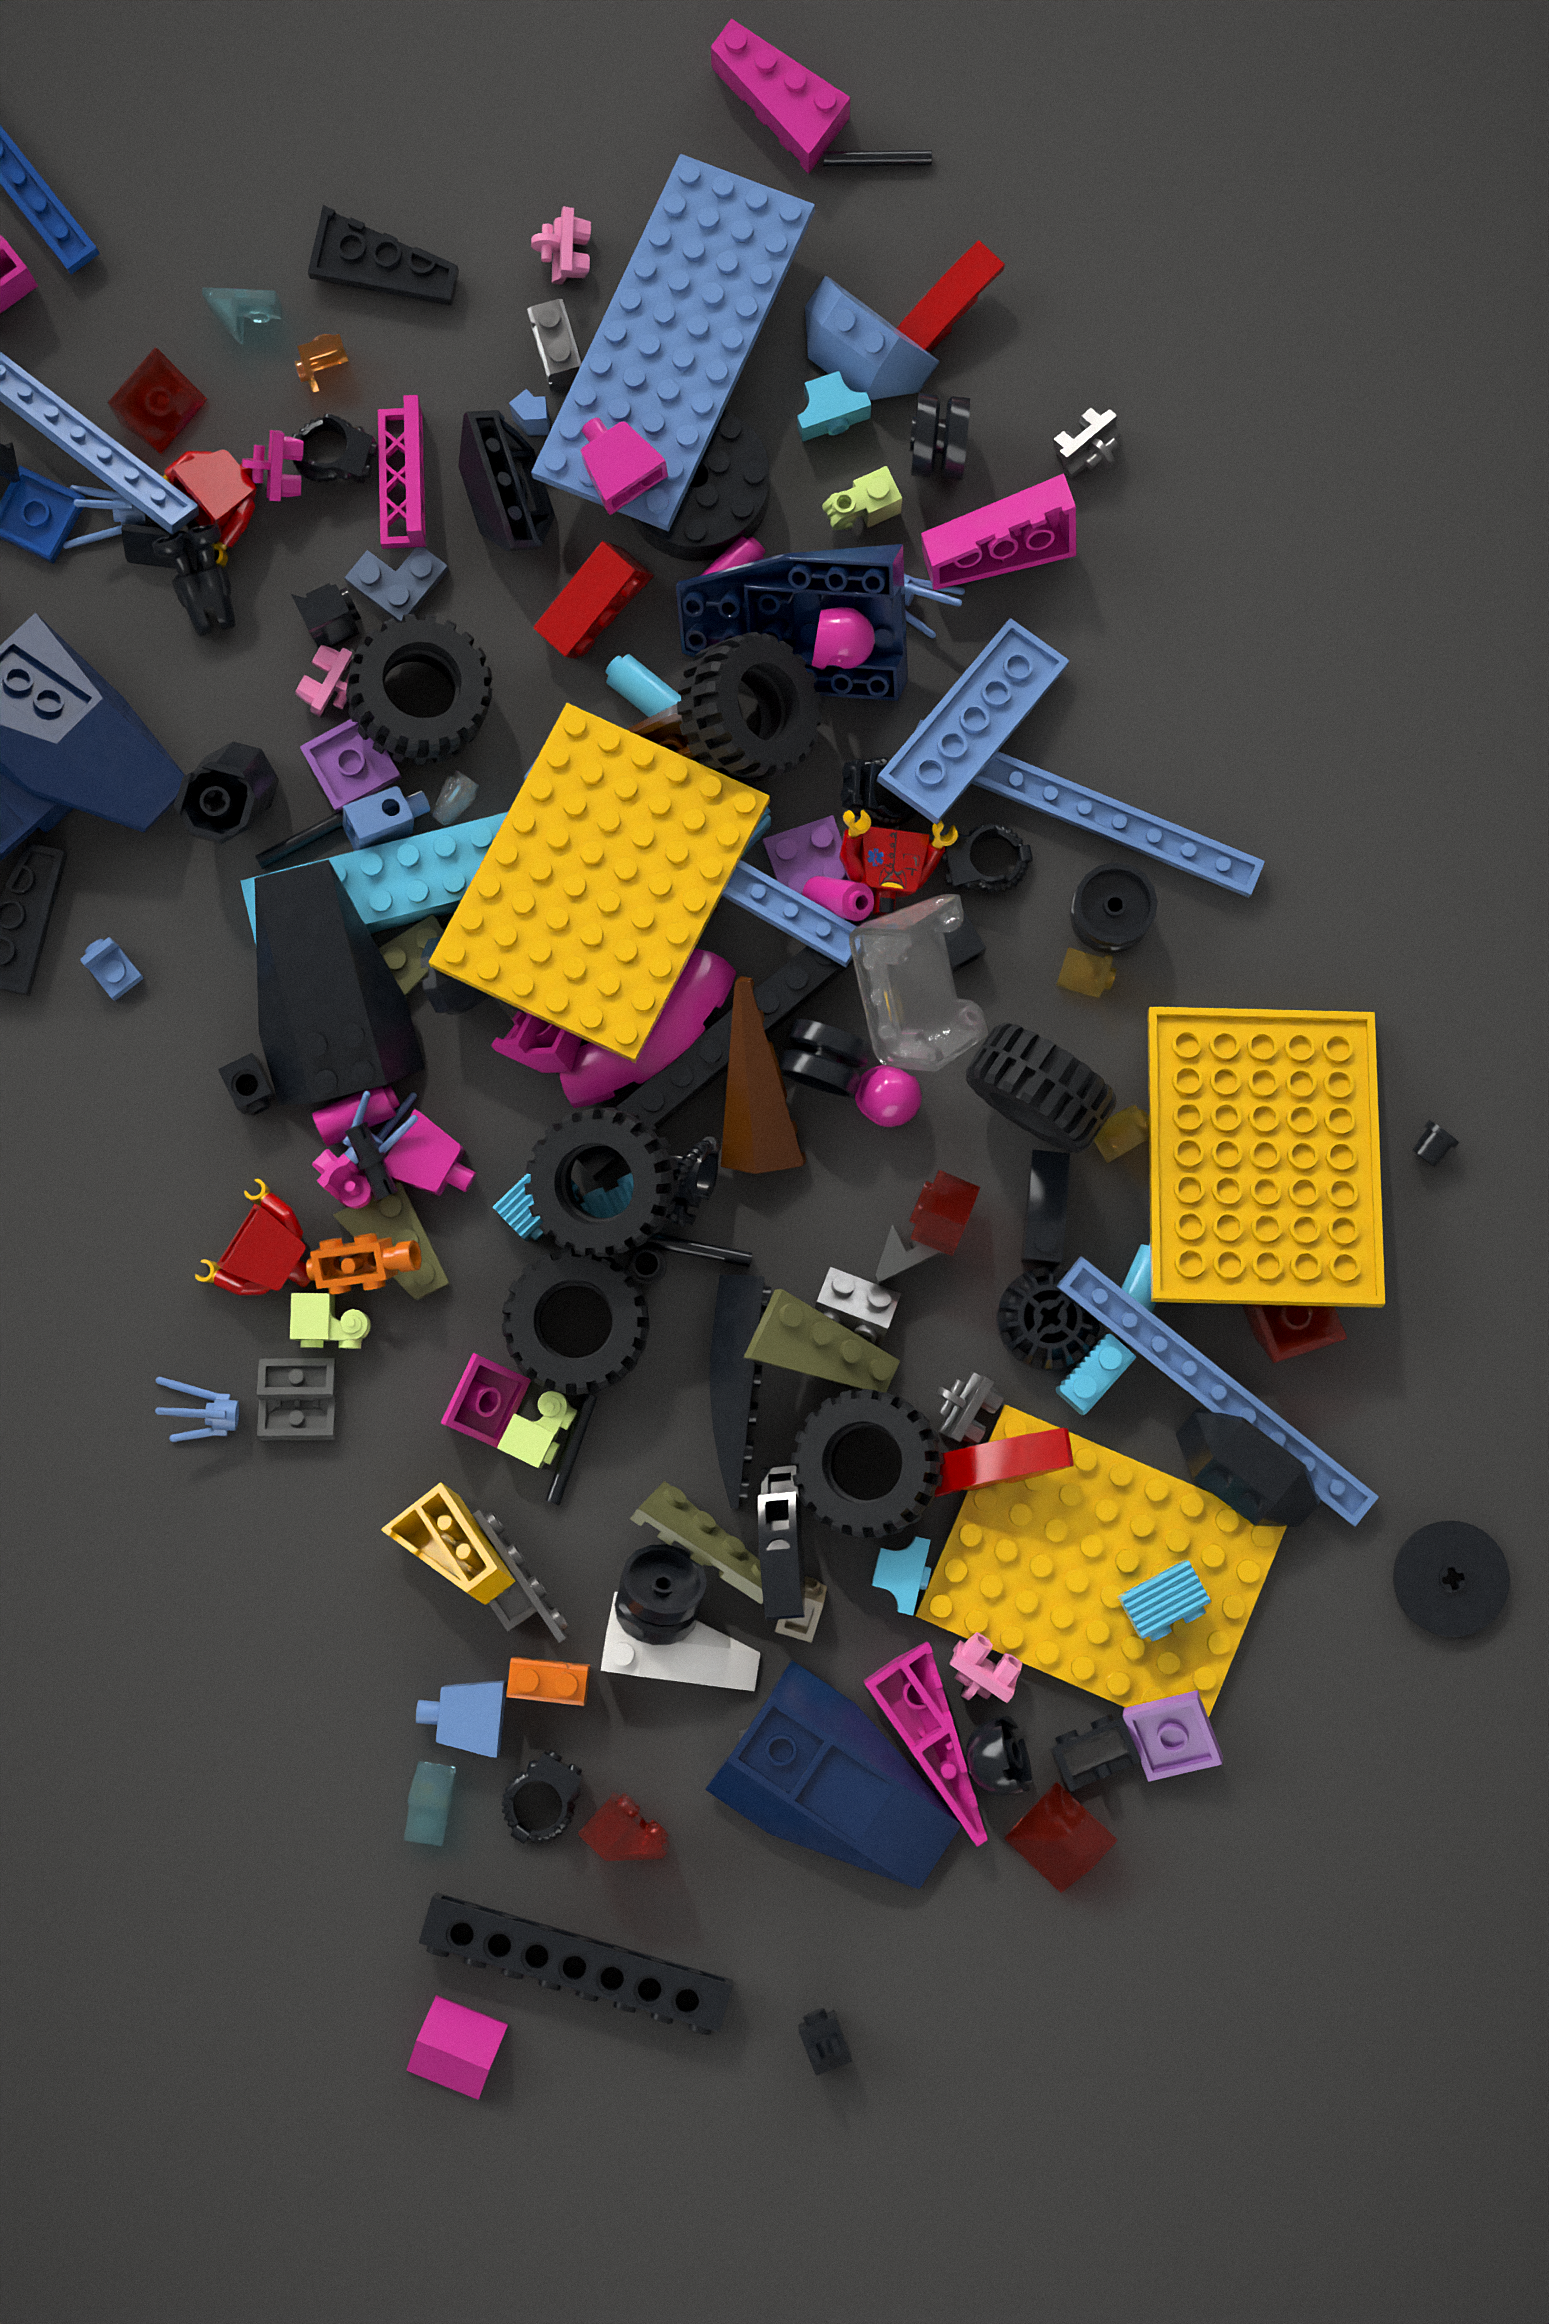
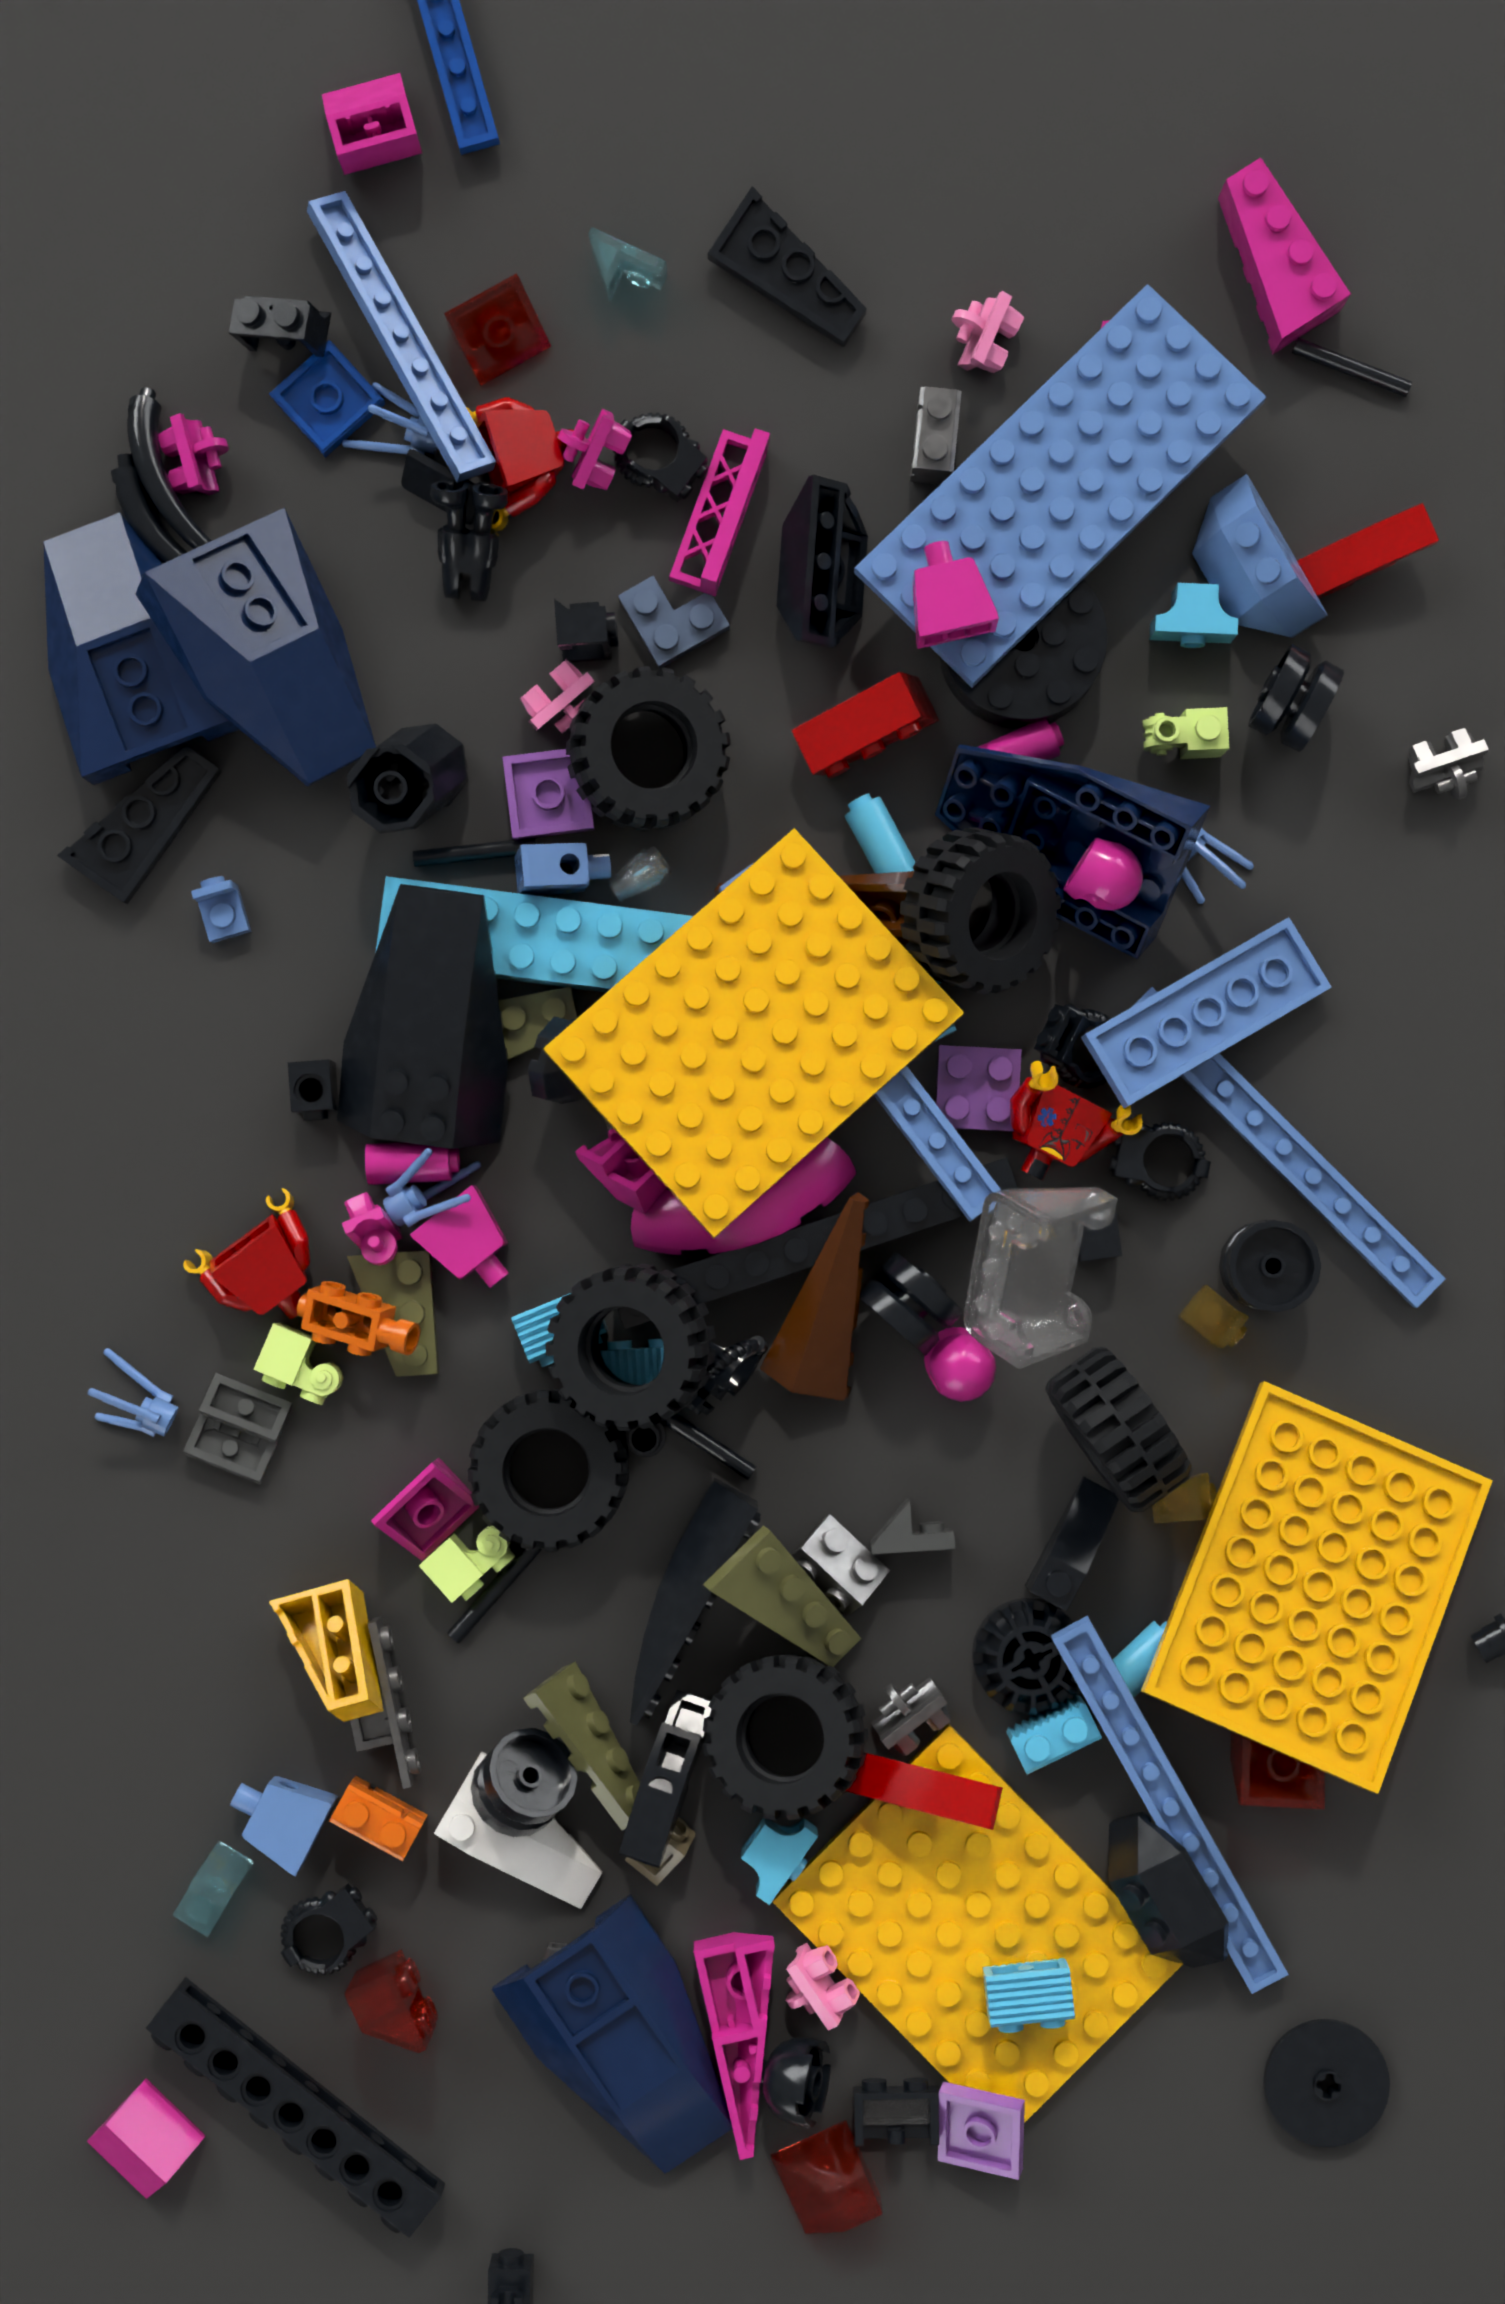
camera: 20 degrees right, 5 degrees up
(321, 353) = (688, 345): clear orange bracket -> none
(371, 1161) = (406, 1223): black pin -> none
(531, 414) = (879, 499): medium blue piece -> none
(841, 897) = (992, 1145): dark pink brick -> none
(943, 1212) = (968, 1511): clear red brick -> none
(1003, 536) = (1318, 830): dark pink wedge -> none

